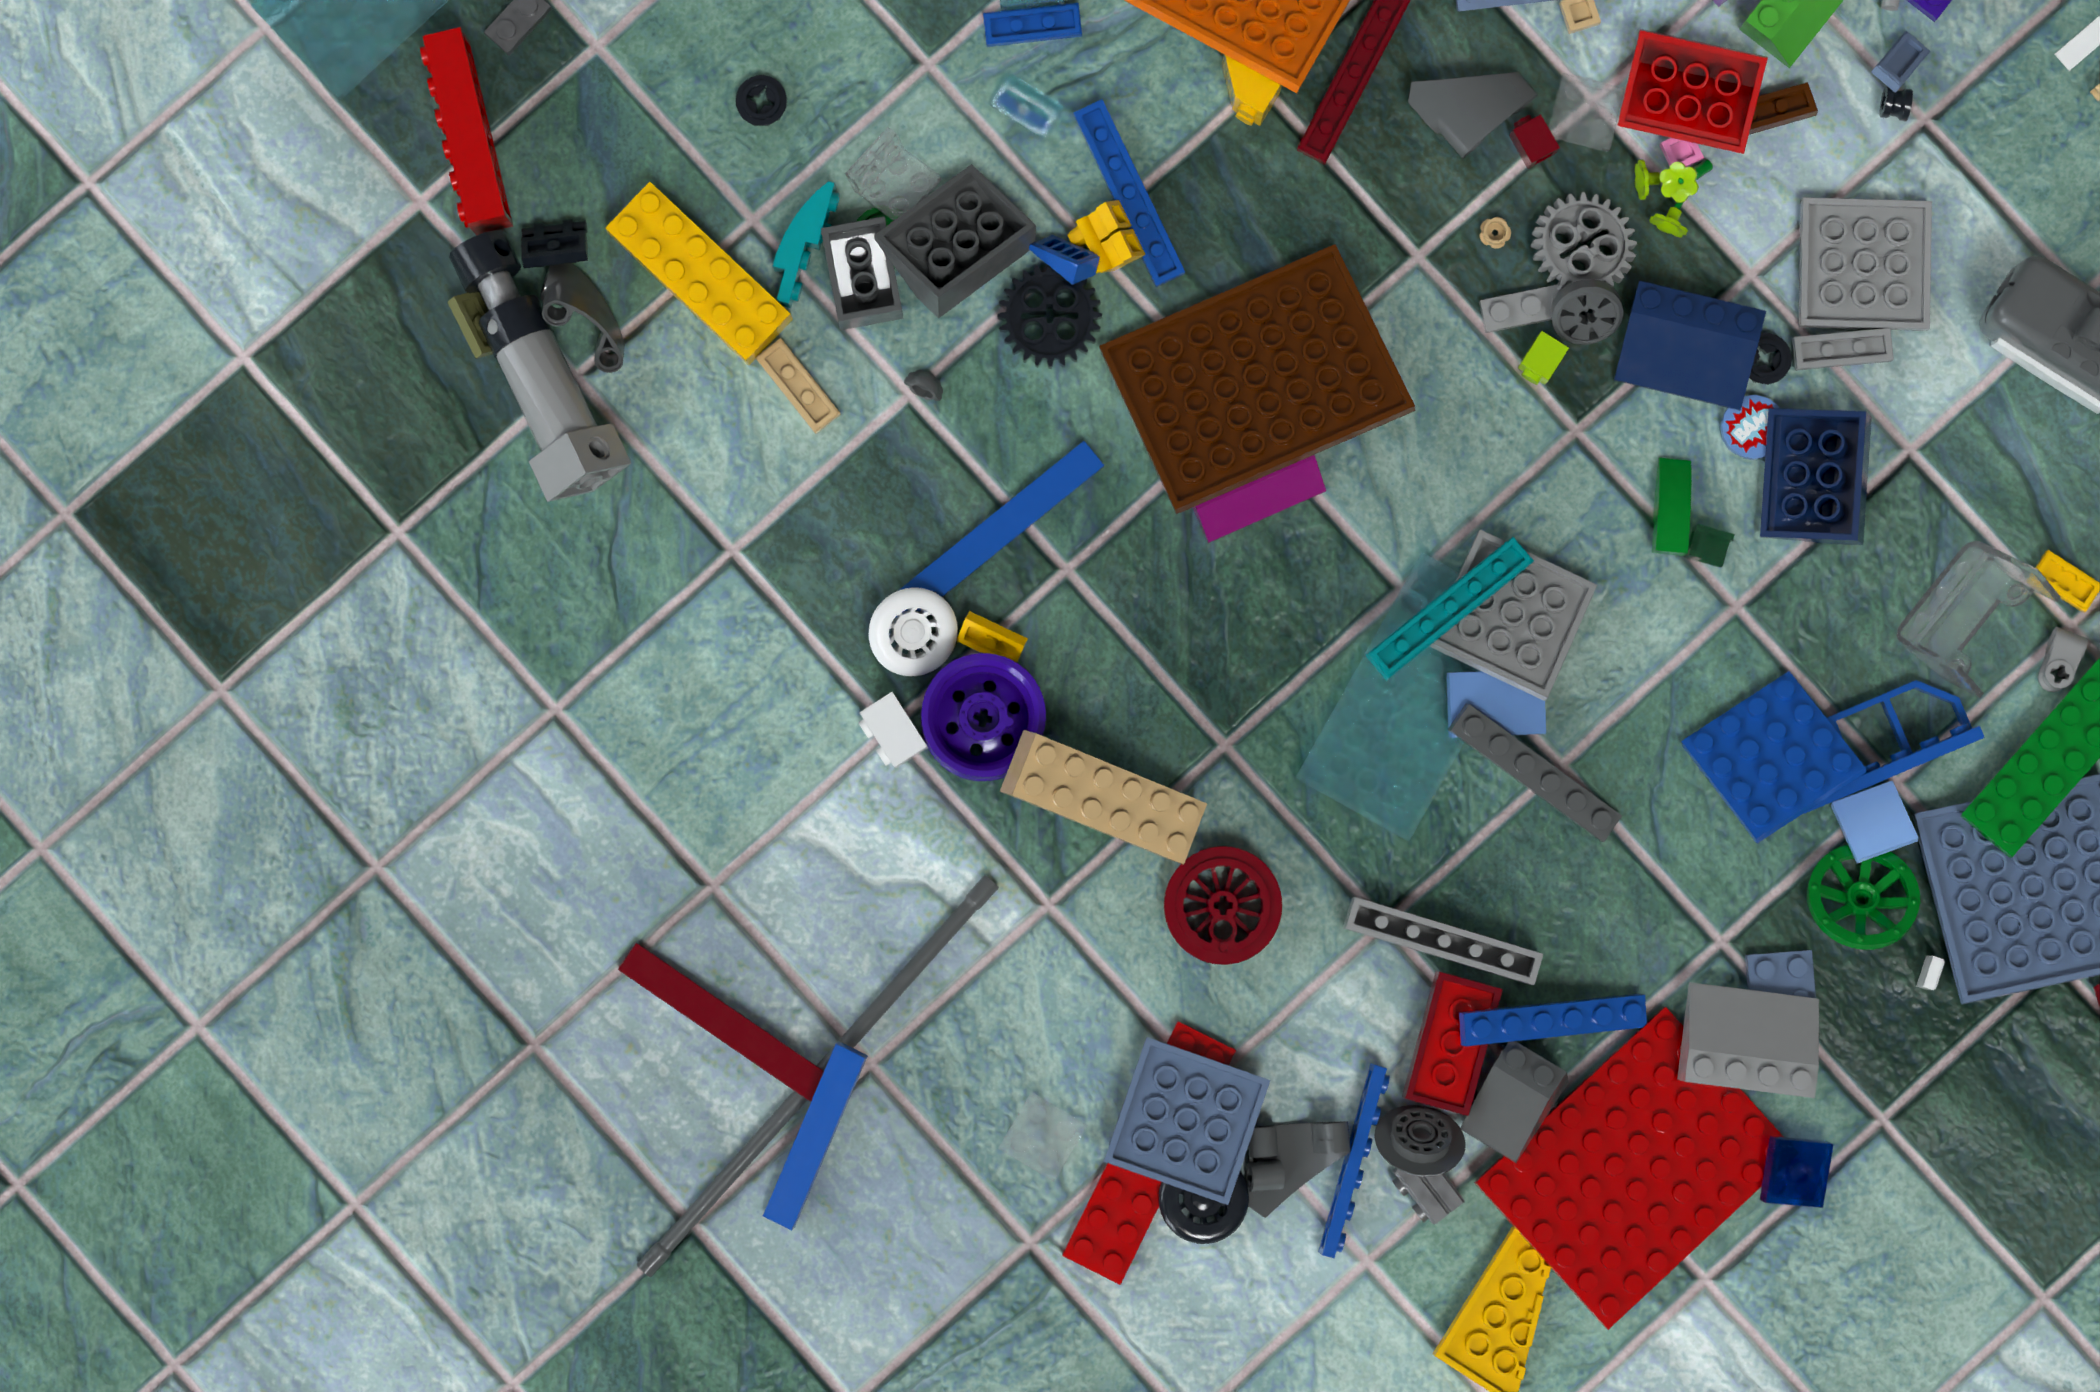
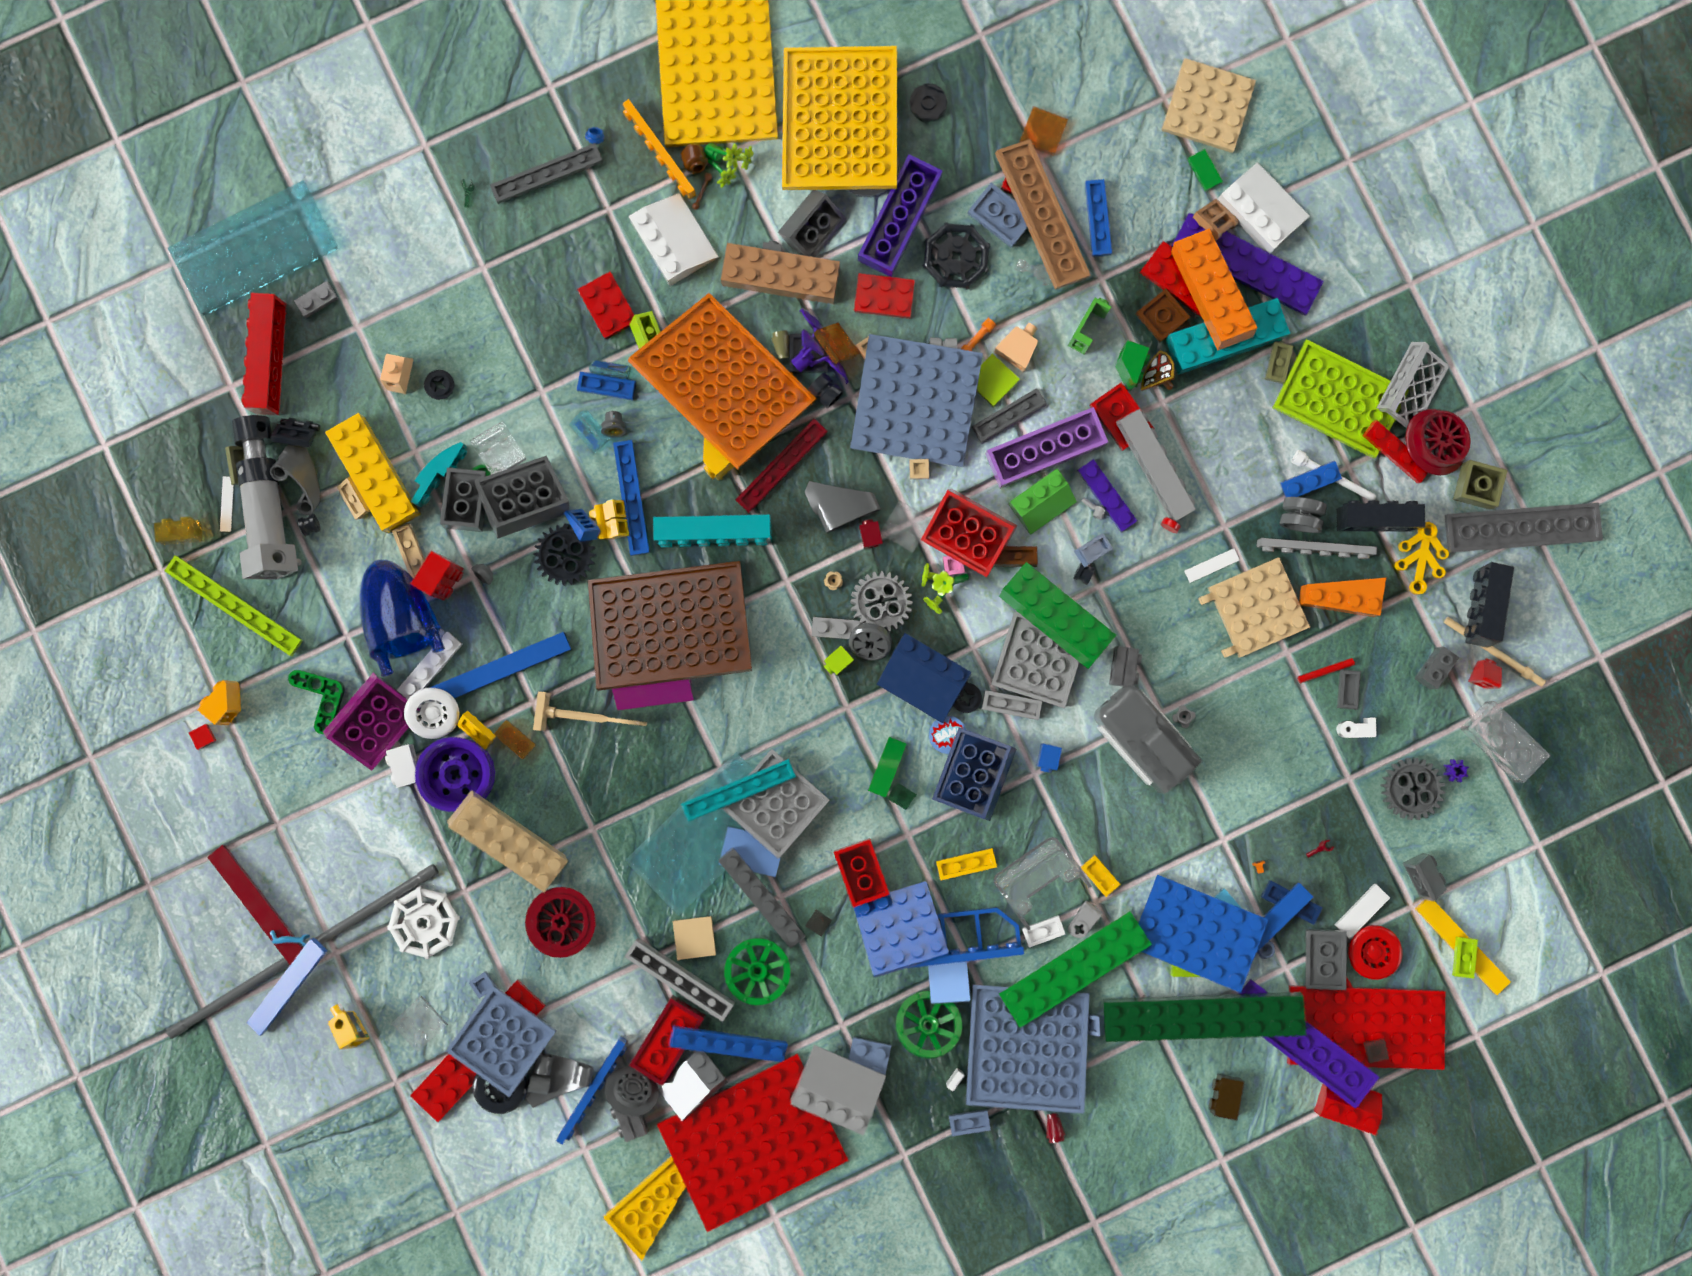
camera: 15 degrees right, 0 degrees up
(411, 459) = (177, 531): none -> clear yellow brick
(472, 393) = (226, 505): none -> white sticker
(536, 553) = (233, 605): none -> lime plate
(549, 779) = (202, 736): none -> red tile
(571, 714) = (222, 703): none -> light orange slope
(620, 387) = (309, 524): none -> black wheel
(679, 323) = (353, 498): none -> tan plate
(688, 101) = (396, 371): none -> light nougat torso
(733, 657) = (328, 695): none -> green beam
(796, 1059) = (287, 939): none -> dark azure piece
(813, 487) = (395, 615): none -> clear blue windscreen
(817, 674) = (369, 722): none -> magenta slope
(861, 405) = (437, 576): none -> red brick
(884, 559) = (429, 667): none -> white plate
(940, 1181) = (347, 1028): none -> yellow torso
(980, 973) = (434, 925): none -> white plate
(1058, 636) = (514, 739): none -> clear orange plate
(1065, 84) = (612, 426): none -> dark grey piece
(1094, 577) = (544, 711): none -> tan piece
(1125, 1044) = (482, 984): none -> sand blue plate
(1280, 205) = (712, 529): none -> teal brick
(1443, 870) = (694, 937): none -> tan tile
(1573, 893) = (745, 997): none -> green wheel
(1635, 788) = (818, 922): none -> clear smoke plate
(1683, 685) = (861, 872): none -> red brick
(1796, 1171) = (843, 1172): clear blue plate -> none
(1845, 624) = (966, 864): none -> yellow plate
(1876, 182) = (1057, 615): none -> green brick
(1927, 415) = (1048, 758): none -> blue brick
(1973, 1035) = (969, 1122): none -> sand blue plate
(2001, 696) = (1043, 931): none -> white plate
(2005, 234) = (1124, 666): none -> flat silver brick

